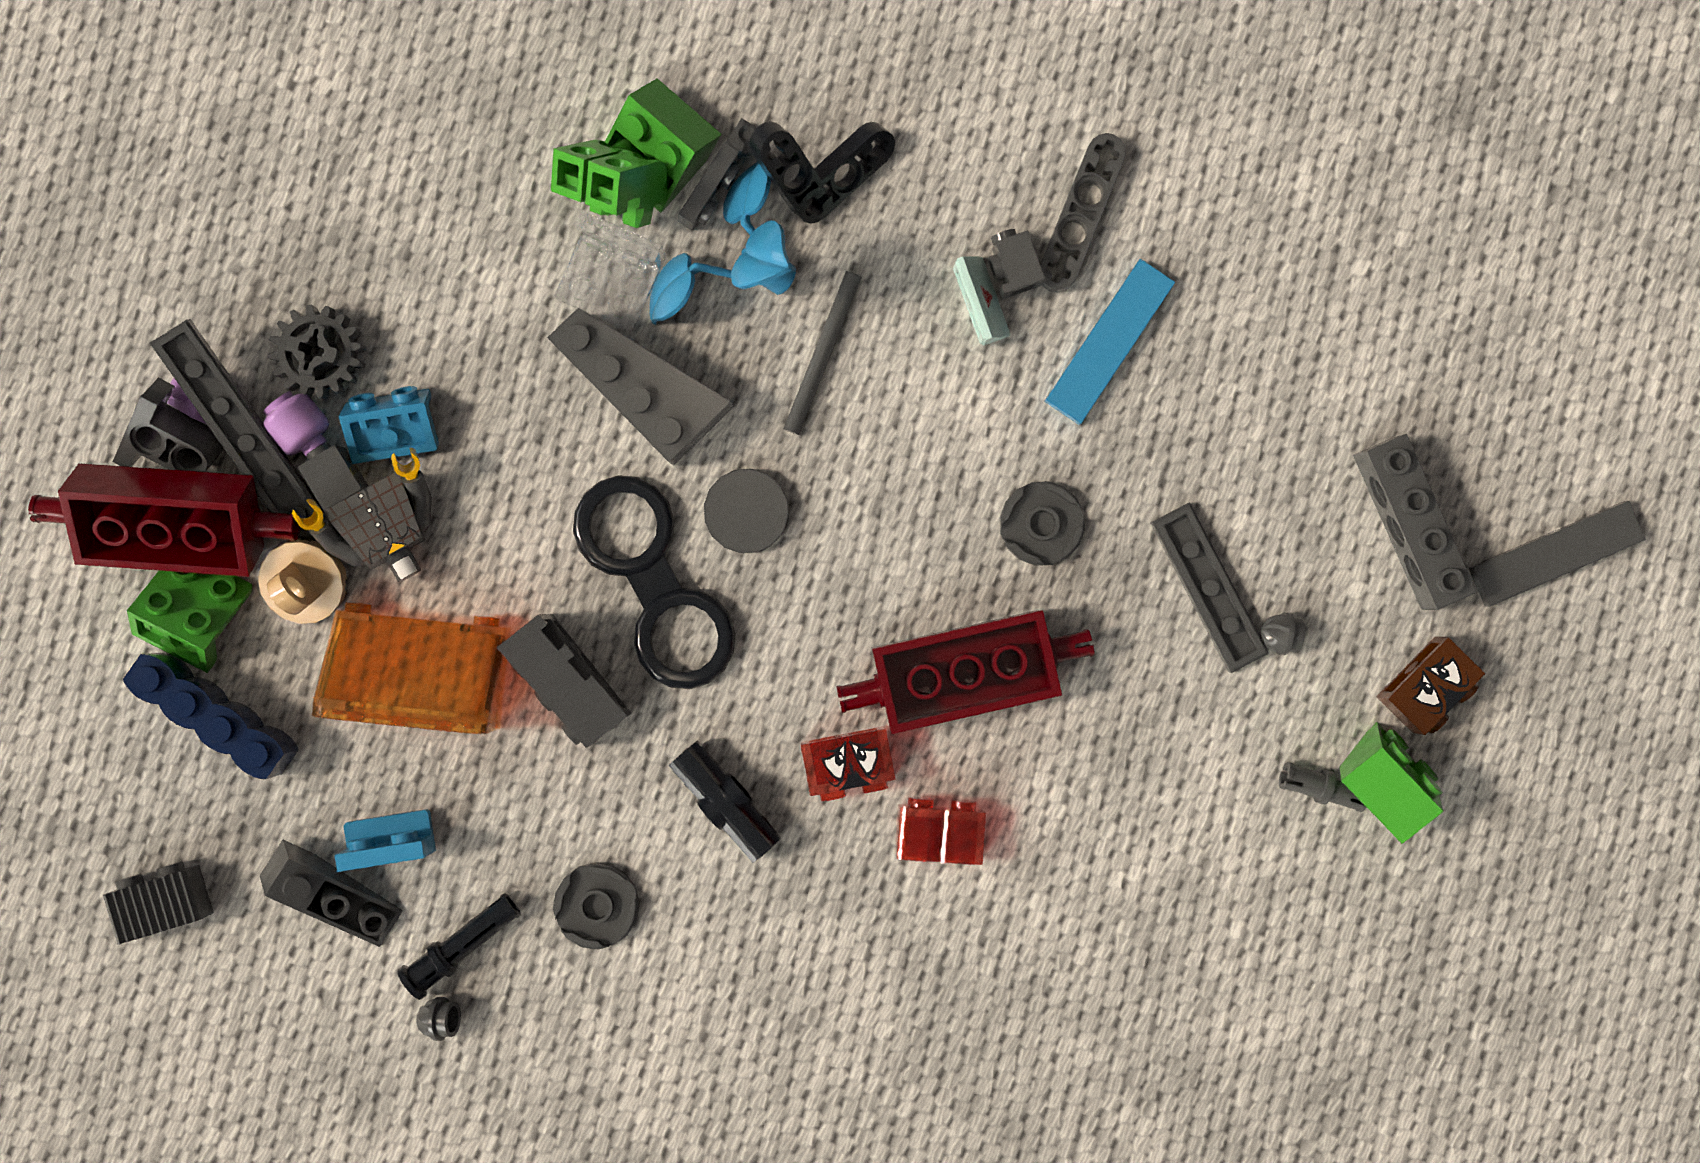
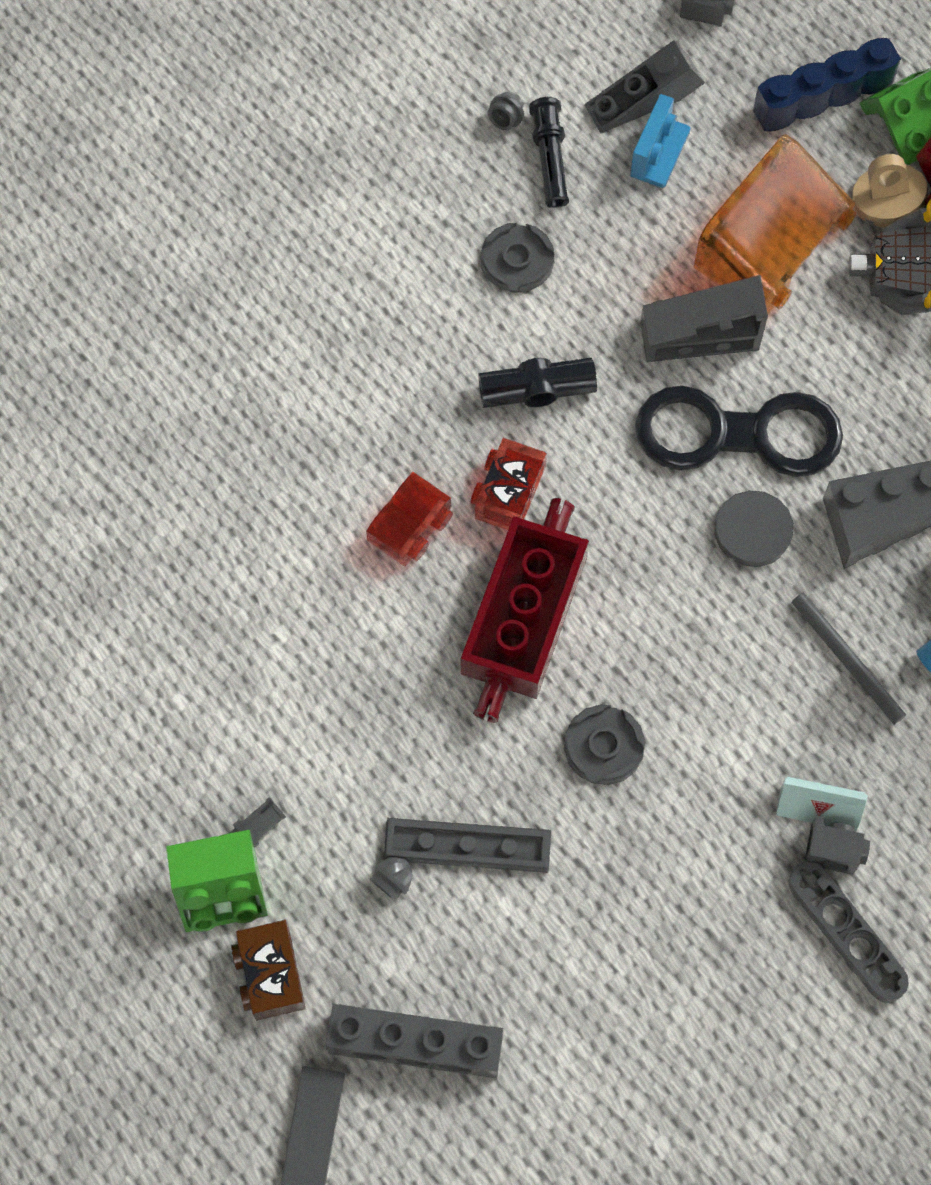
camera: 125 degrees right, 20 degrees down
(1109, 341) = (723, 889): dark azure tile -> none

